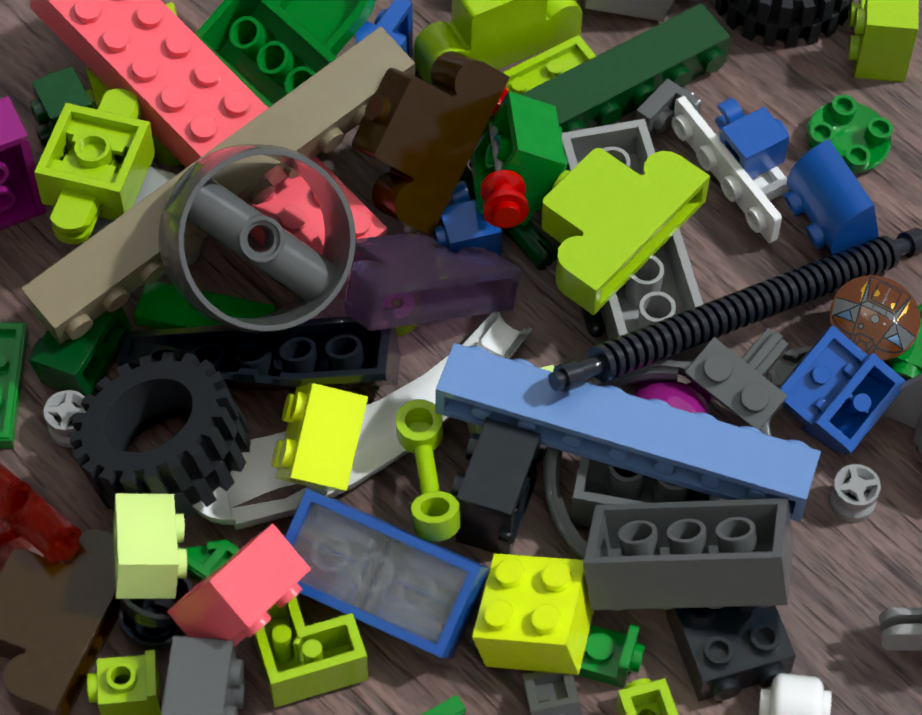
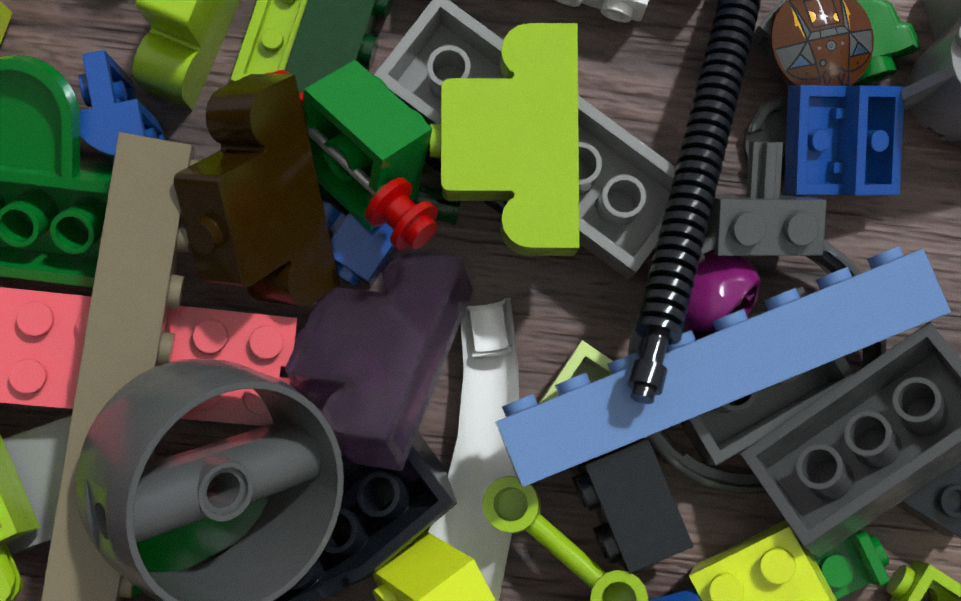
camera: 45 degrees left, 25 degrees up
(861, 483) = (932, 219): light grey wheel -> none

